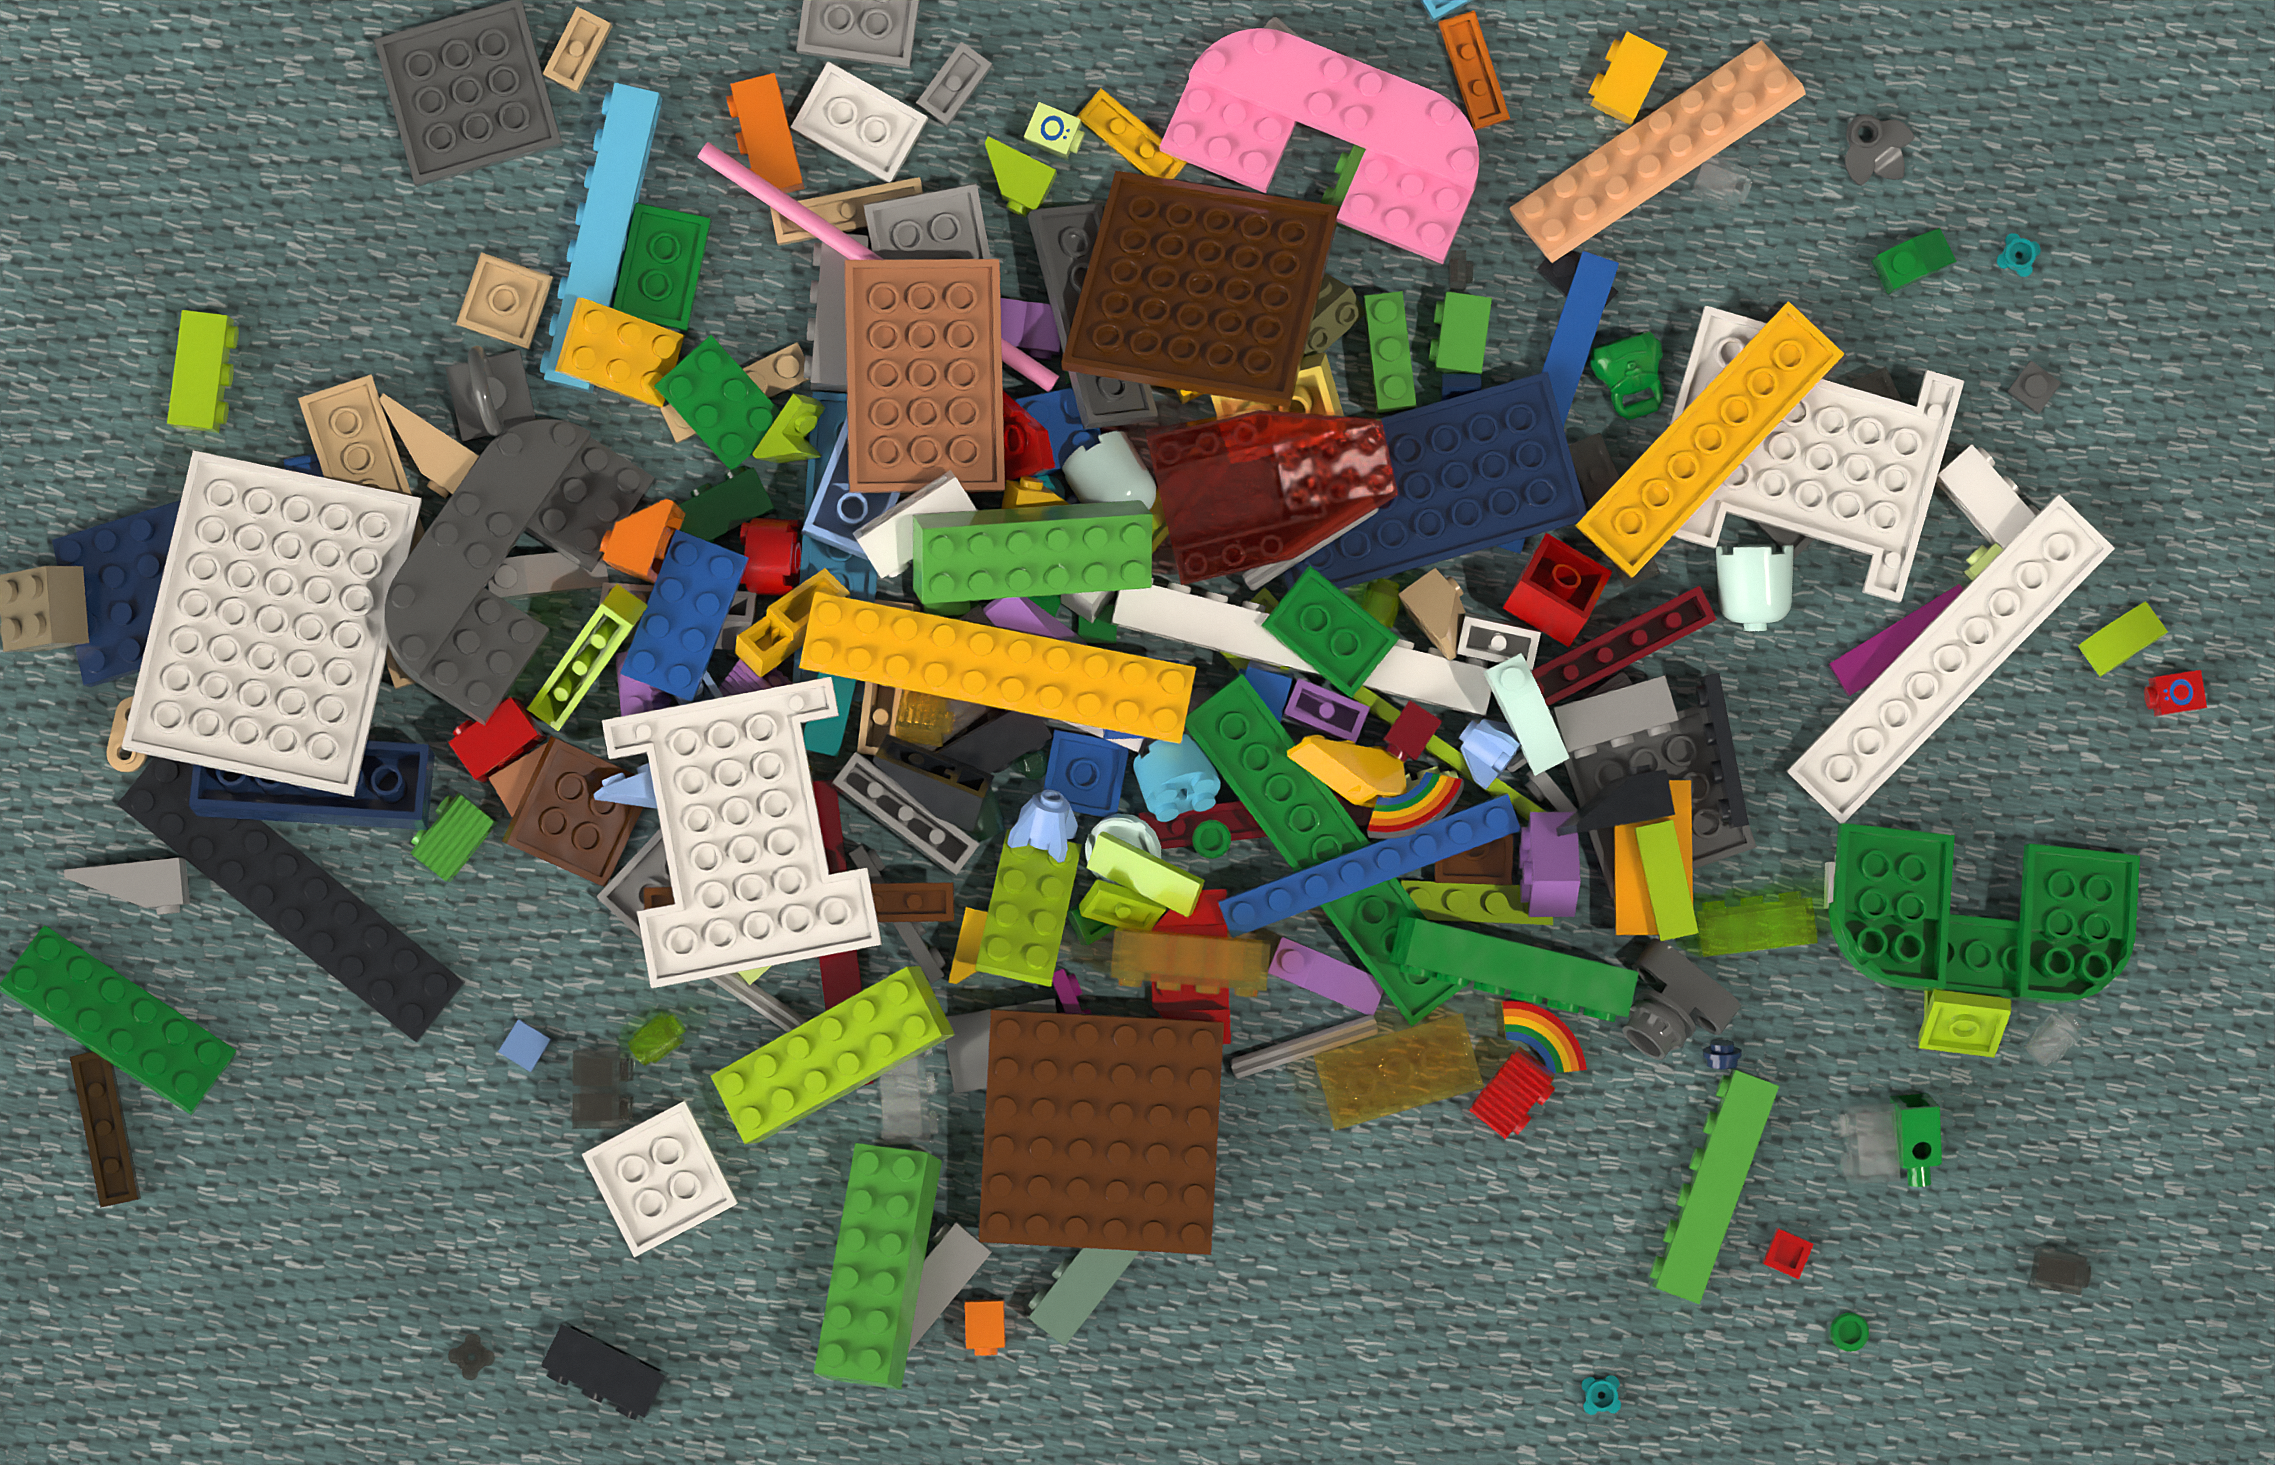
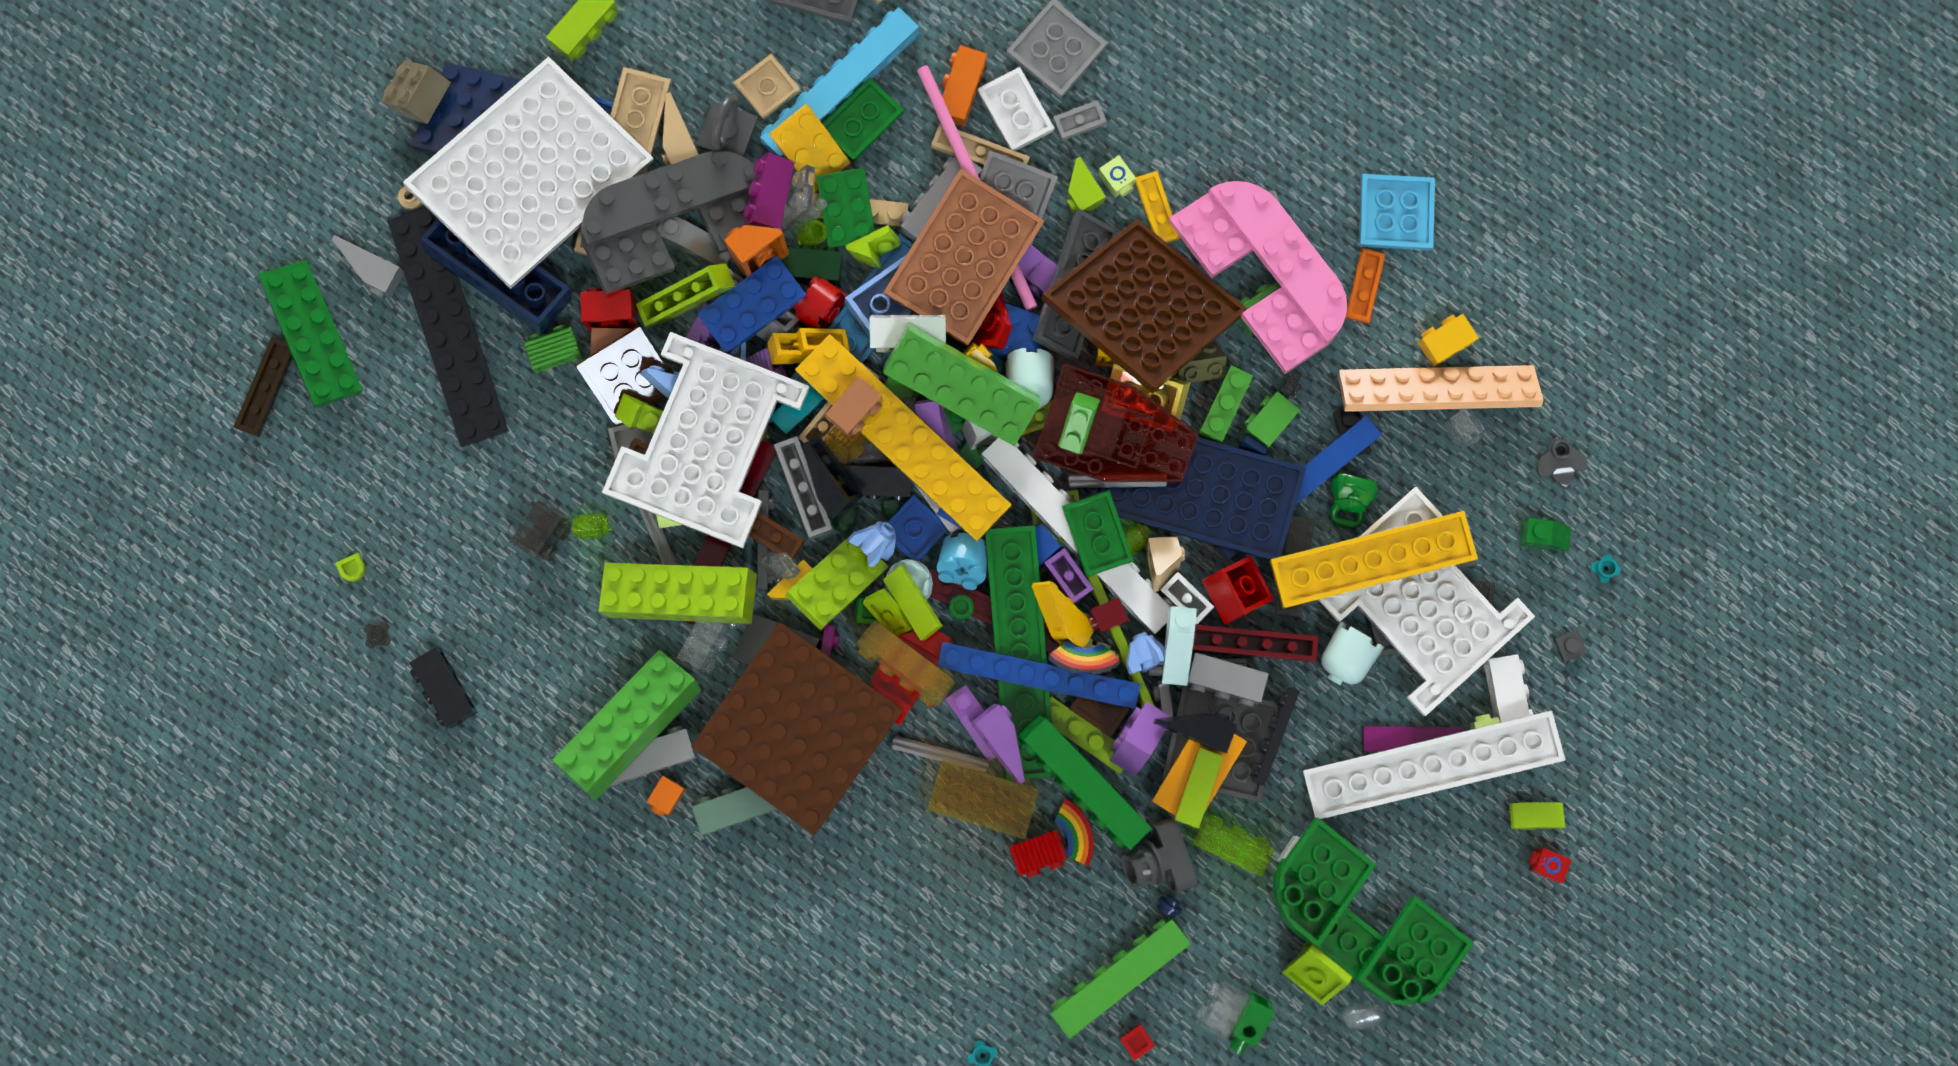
camera: 25 degrees right, 5 degrees down
(379, 1291) = (351, 568): none -> lime tile
(525, 1045) = (517, 485): medium blue tile -> none
(607, 450) = (769, 191): none -> magenta brick
(628, 851) = (638, 414): none -> lime slope
(650, 432) = (799, 203): none -> clear plate
(660, 1178) = (542, 603): white plate -> none
(697, 466) = (812, 233): none -> clear neon green brick
(913, 671) = (854, 408): none -> nougat brick
(942, 936) = (780, 566): none -> clear tile
(1215, 503) = (1079, 422): none -> bright green brick
(1370, 976) = (1000, 736): none -> medium lavender slope

